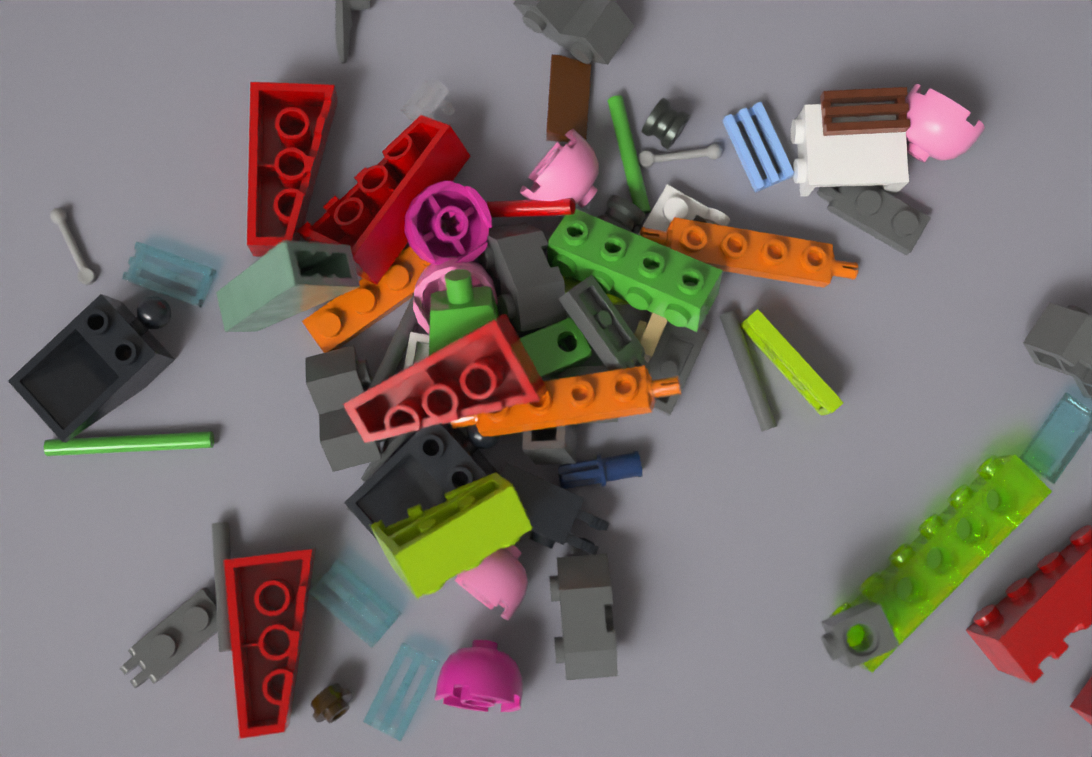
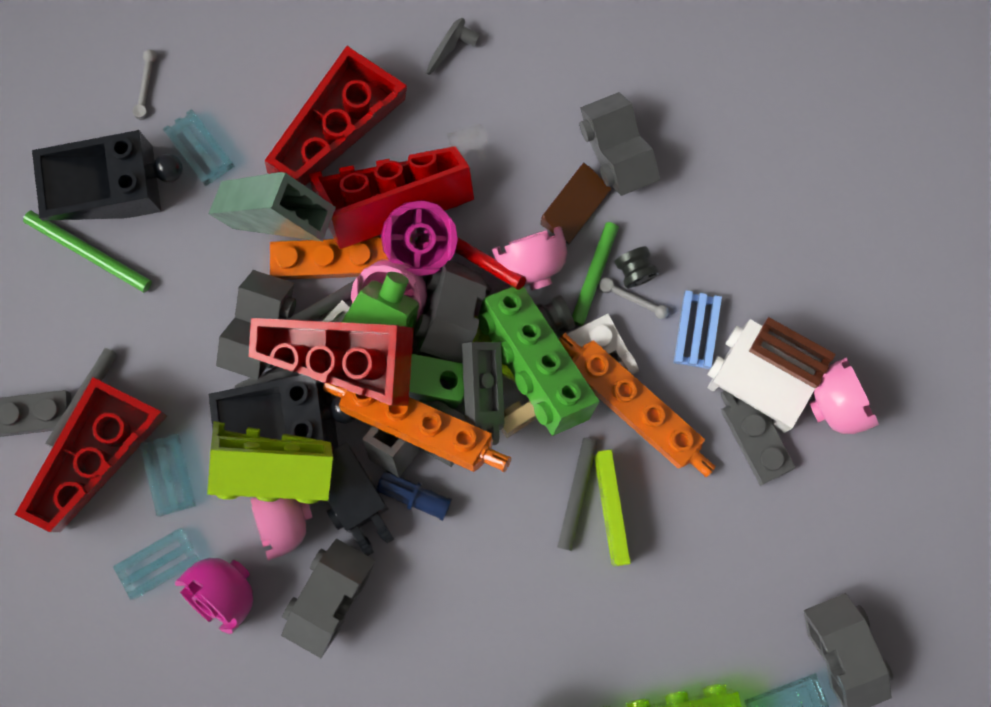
camera: 30 degrees right, 5 degrees down
(331, 703) = (99, 537): dark brown plate -> none
(675, 357) = (526, 448): dark grey hinge -> none

